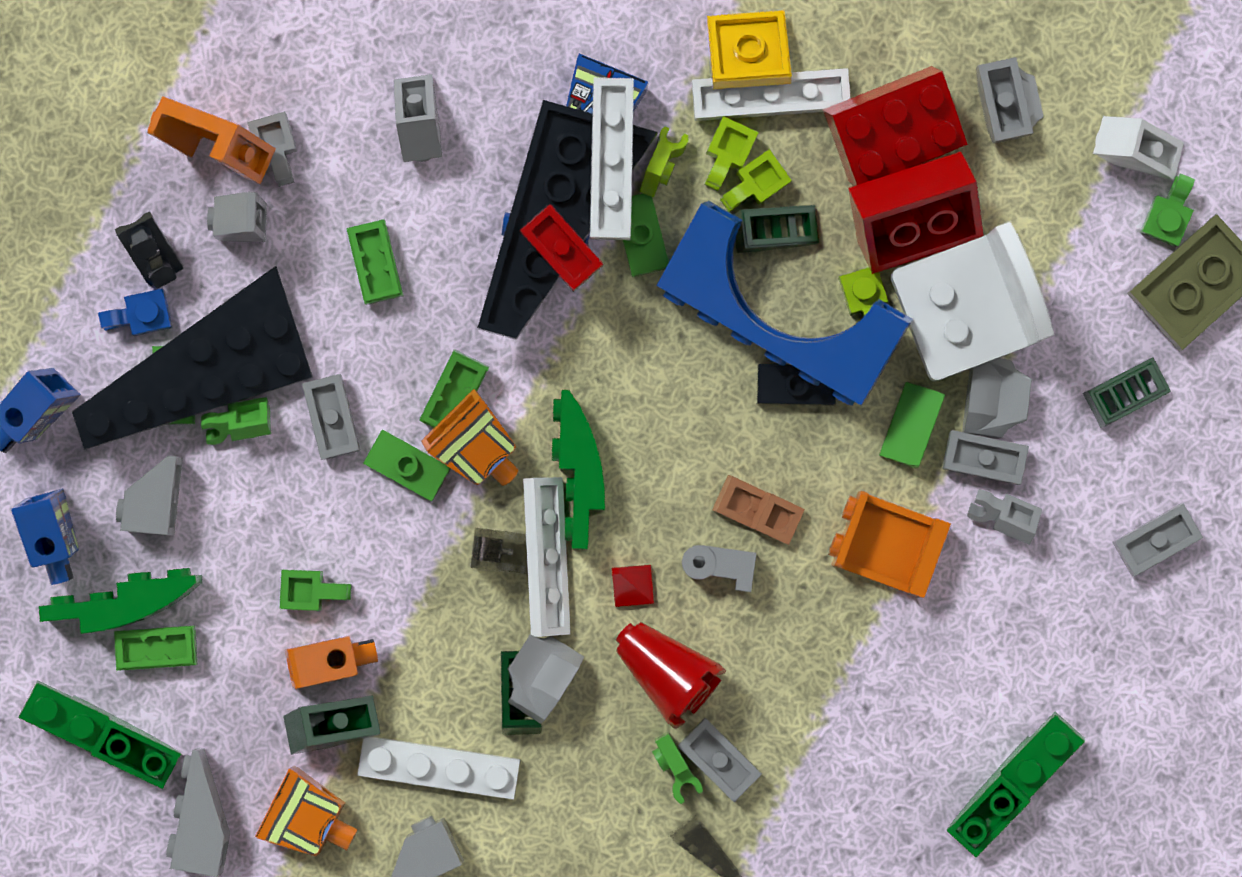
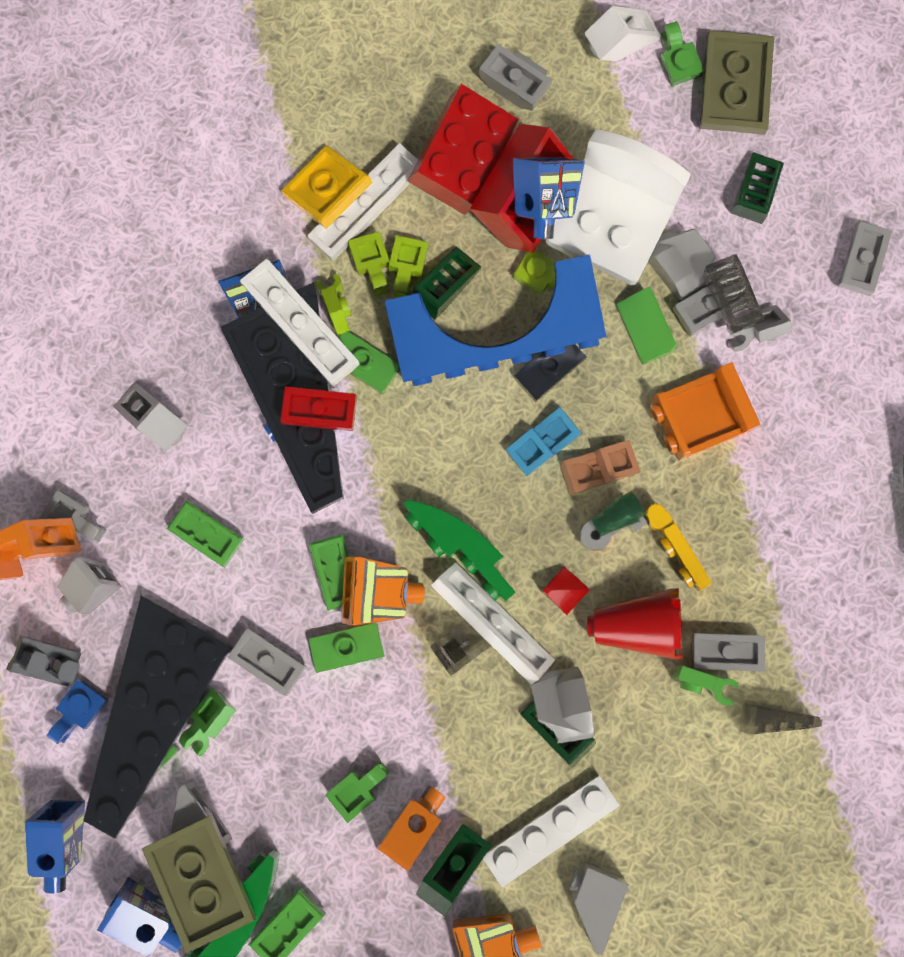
camera: 40 degrees left, 5 degrees down
(120, 546) = (199, 883): none -> olive plate
(731, 444) = (543, 441): none -> dark azure slope
(733, 563) = (620, 513): none -> clear green cone
(758, 632) = (676, 545): none -> yellow hinge
(925, 234) = (546, 190): none -> blue torso
(1019, 435) = (738, 276): none -> clear smoke slope

